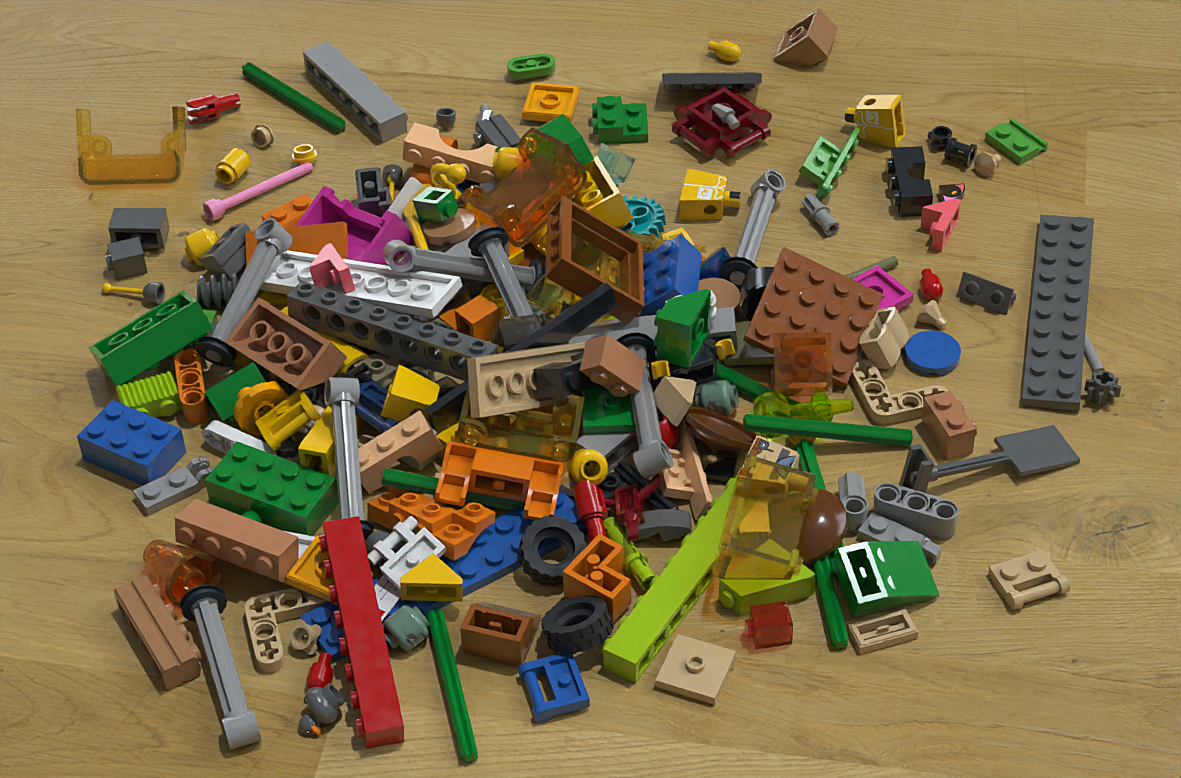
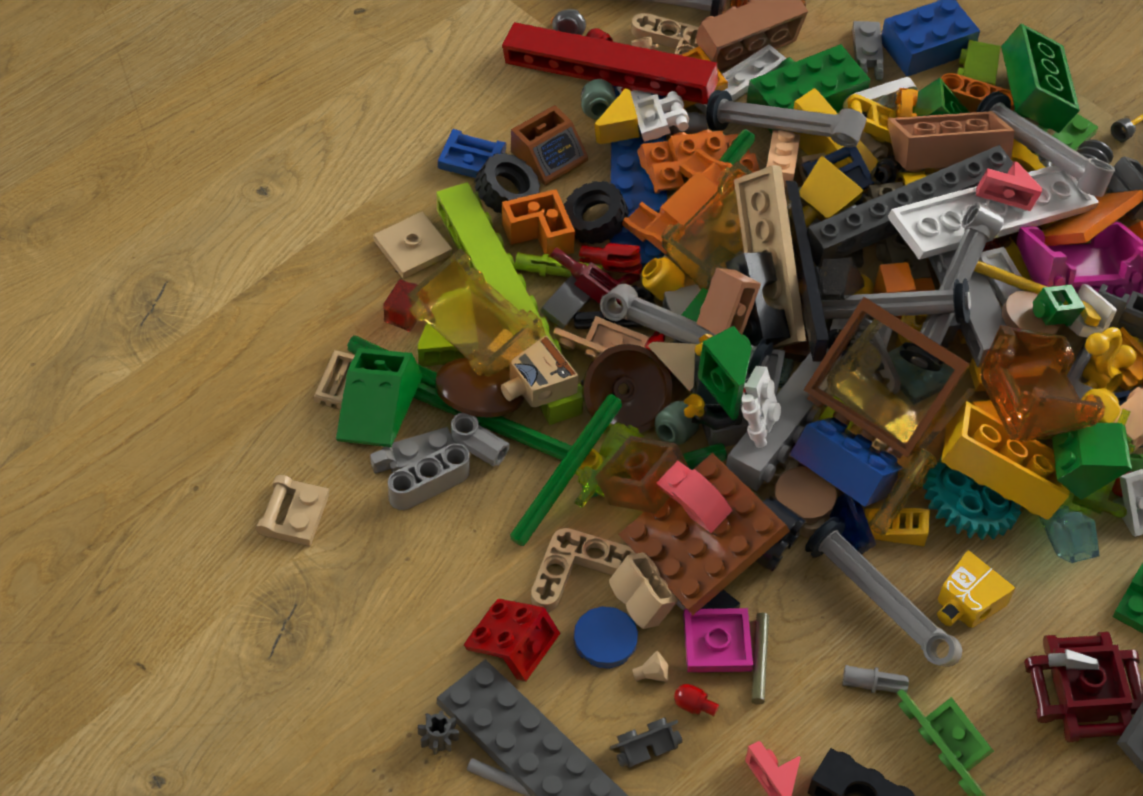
camera: 120 degrees right, 10 degrees up
(452, 686) = (518, 101): green axle -> none
(805, 307) = (696, 496): none -> coral brick
(949, 425) = (499, 568): nougat brick -> none
(991, 394) = (515, 633): none -> red bracket
(1026, 452) = (422, 613): dark grey piece -> none

